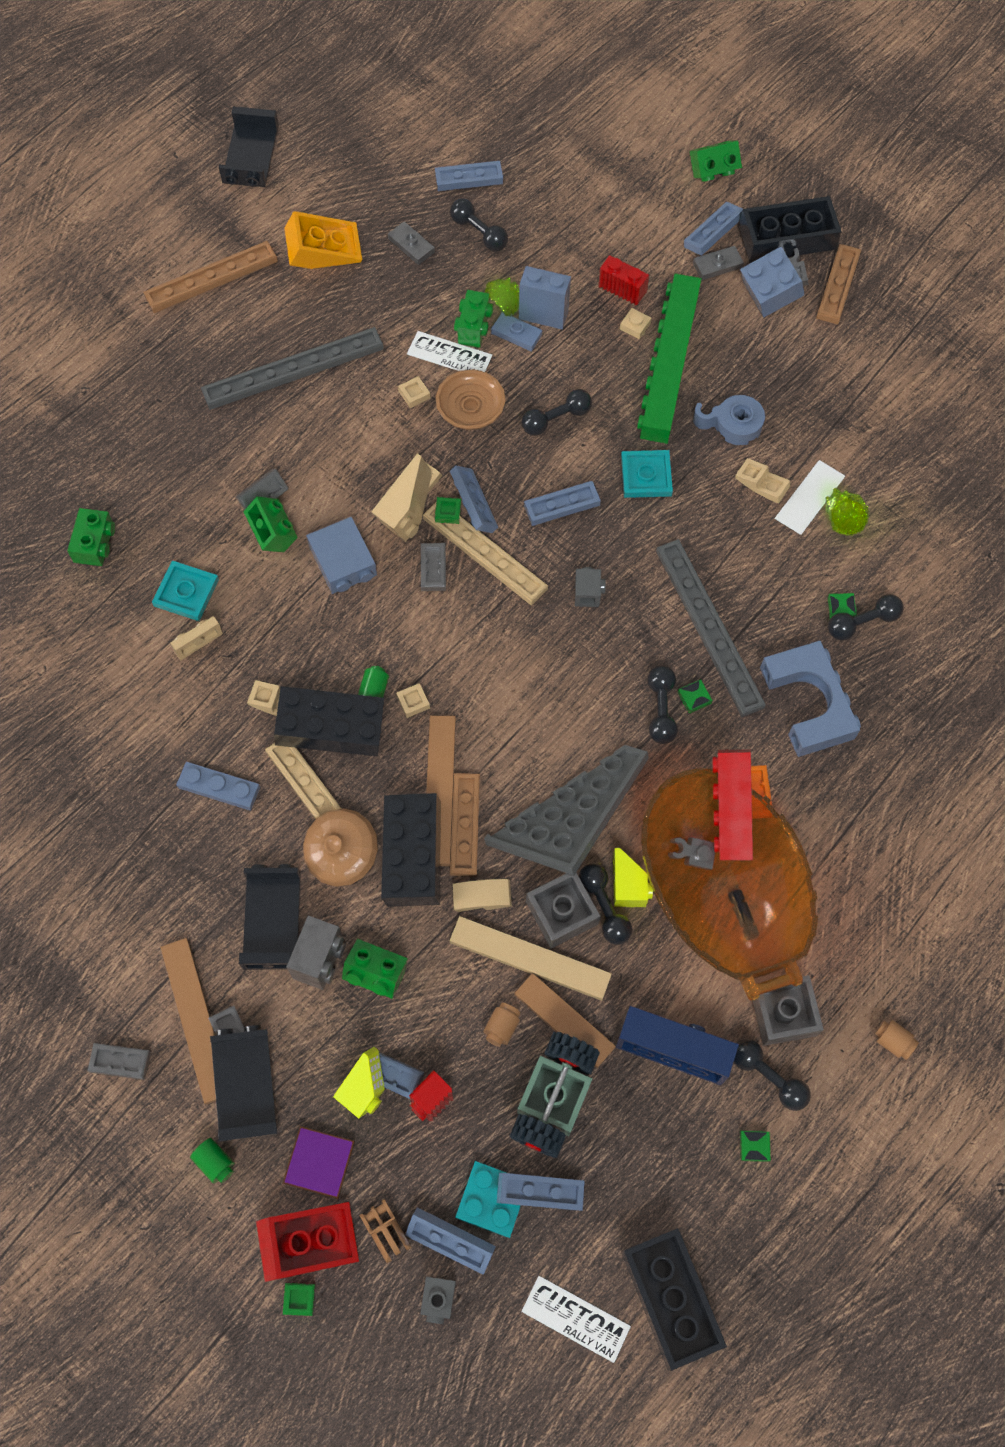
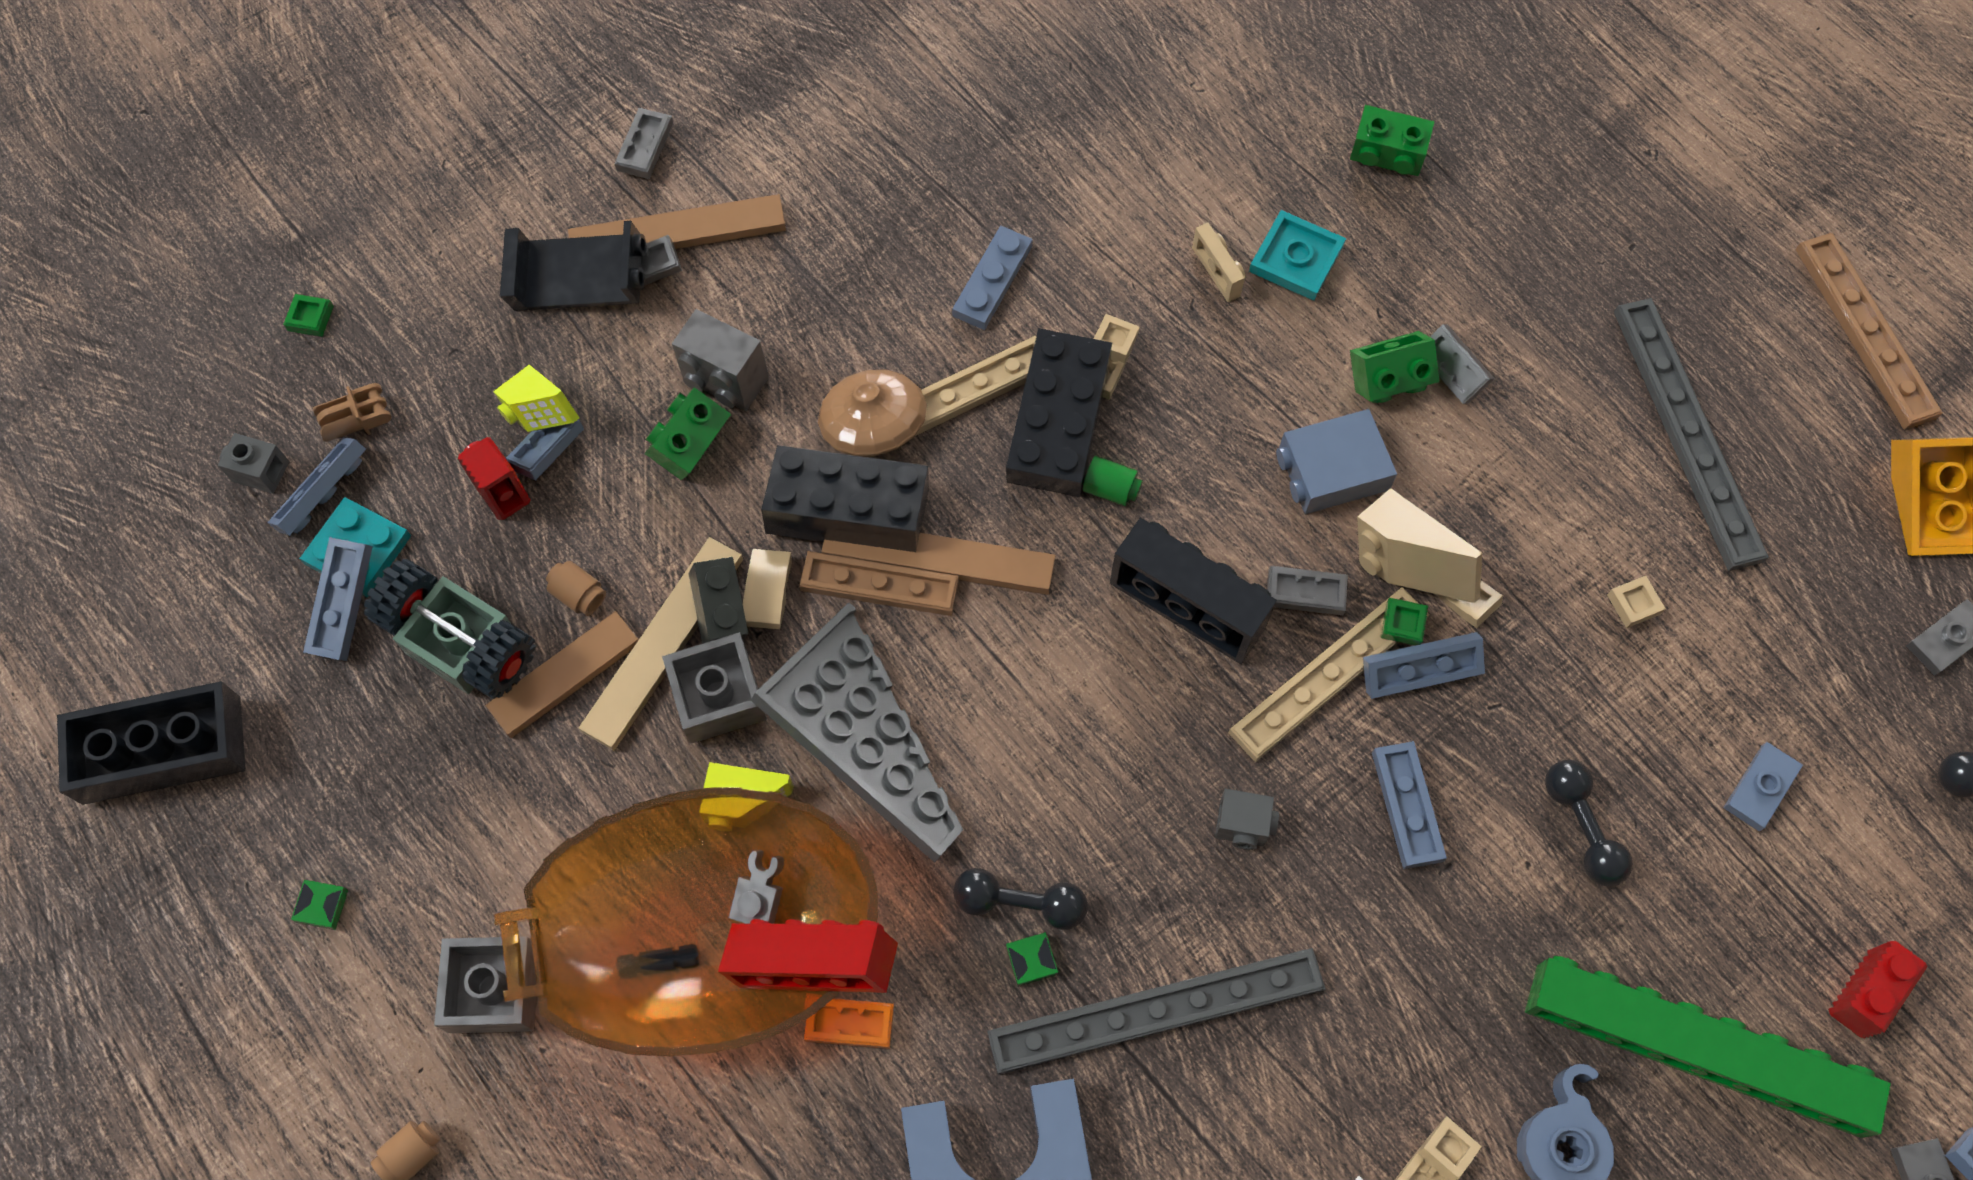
camera: 100 degrees right, 0 degrees up
(213, 1161) = (487, 233): green brick -> none
(270, 916) = (794, 324): black panel -> none
(307, 1241) = (366, 324): red slope -> none
(319, 1162) = (461, 351): dark purple tile -> none
(413, 700) = (1082, 534): tan plate -> none
(448, 353) = (1717, 673): white sticker -> none
(449, 625) = (1191, 590): none -> black brick
(470, 399) = (1614, 680): medium nougat hat -> none
(473, 319) = (1785, 712): green brick -> none
(502, 918) = (717, 599): none -> pearl dark grey brick
(504, 294) = (1829, 763): clear neon green hair -> none
(544, 297) = (1824, 828): sand blue brick -> none
(576, 1319) = (181, 630): white sticker -> none
(616, 928) = (674, 762): black piece -> none
(635, 323) = (1784, 1000): tan plate -> none
(646, 473) = (1458, 957): teal plate -> none
(677, 1045) = (475, 808): dark blue brick -> none
(793, 1093) = (372, 972): black piece -> none

